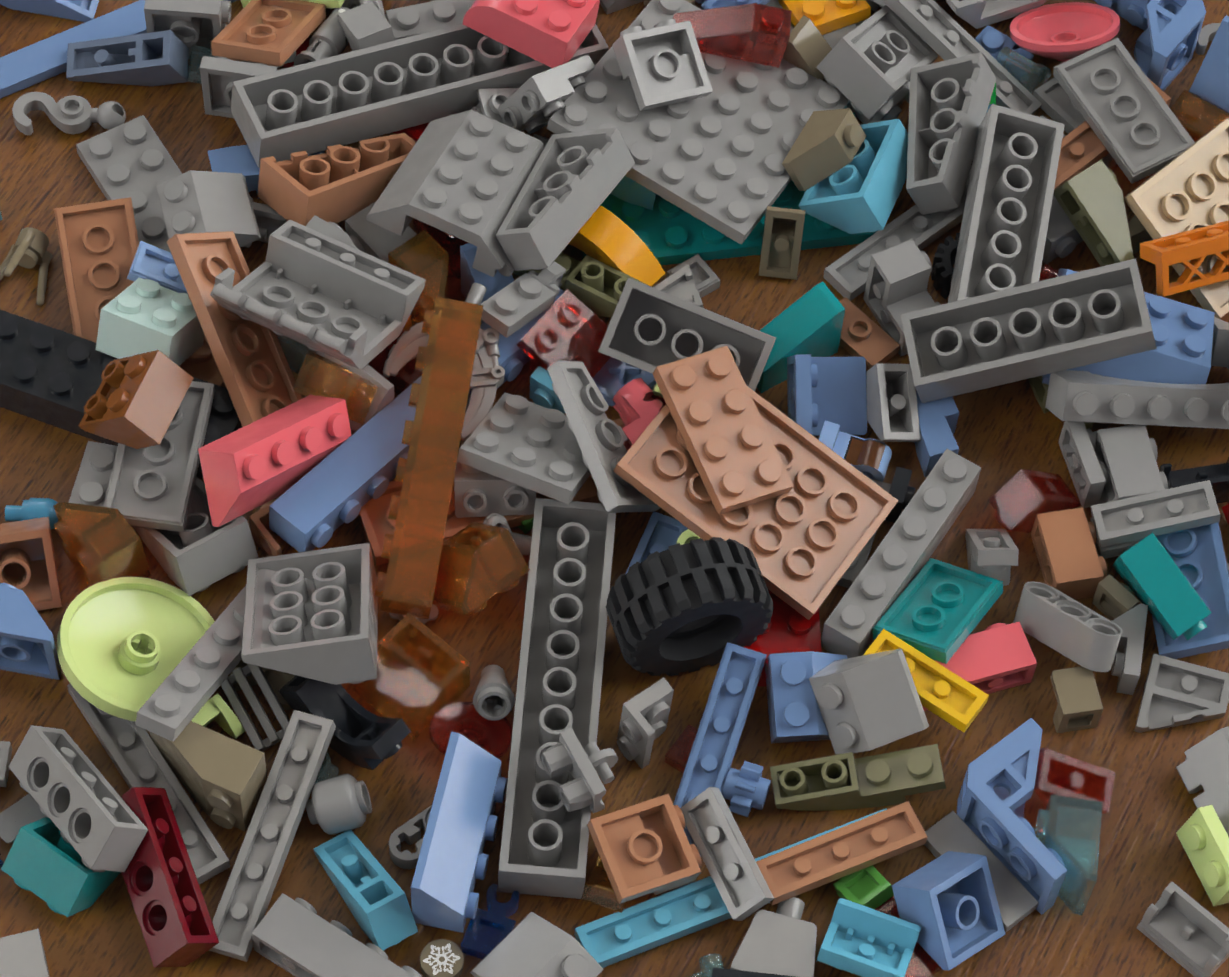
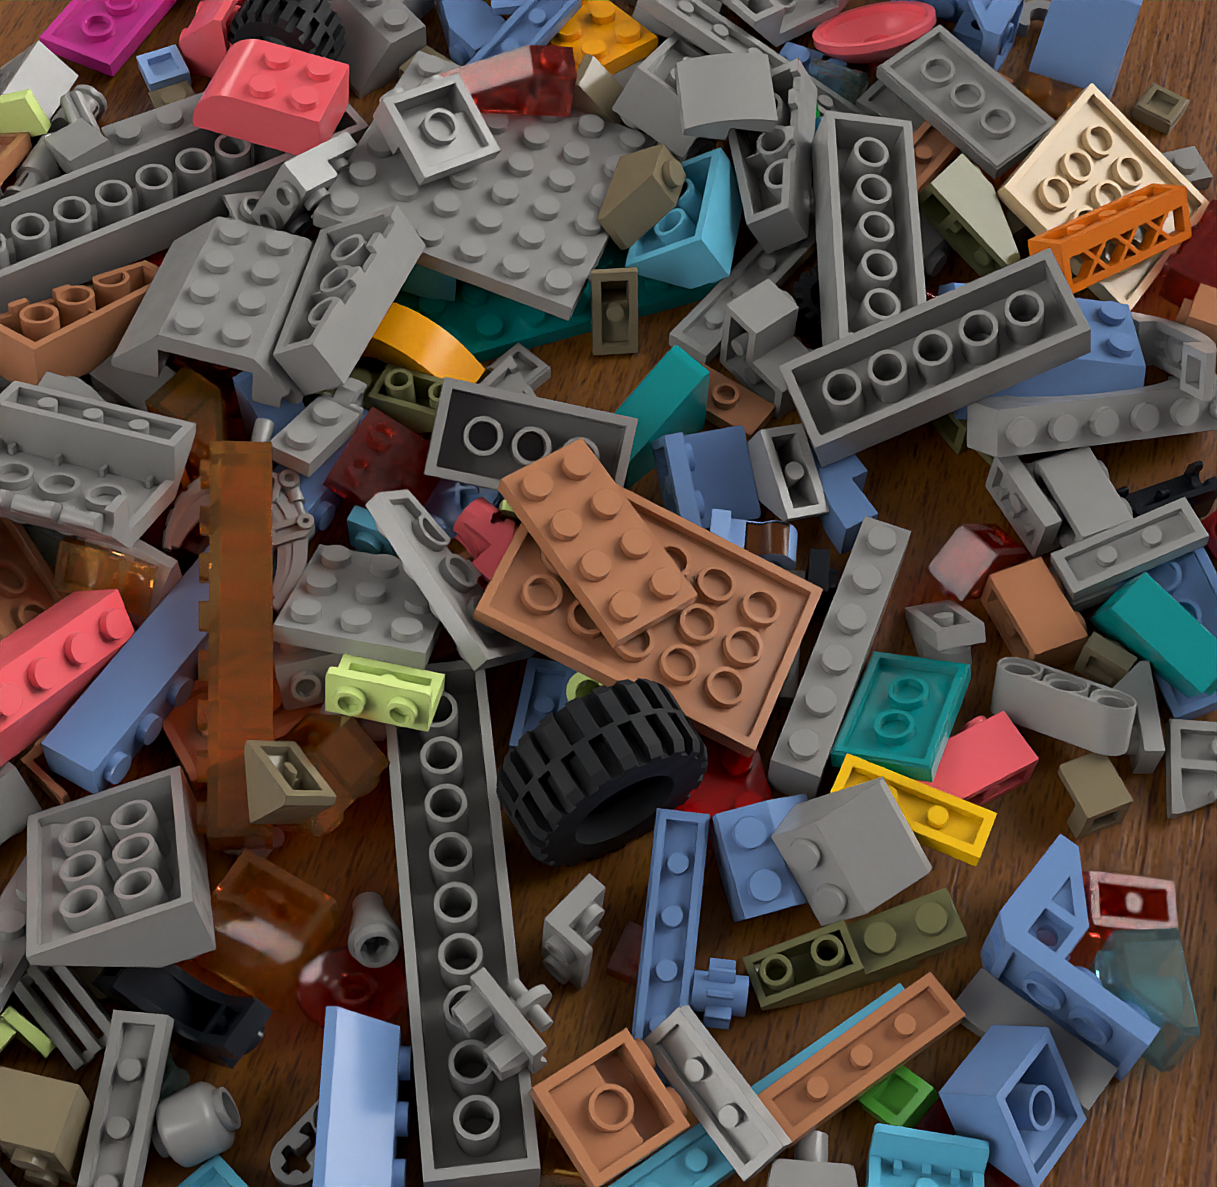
camera: 10 degrees left, 0 degrees up
(446, 569) = (283, 784): none -> dark tan slope
(534, 515) = (383, 692): none -> yellowish green bracket
(912, 74) = (725, 94): none -> light grey slope

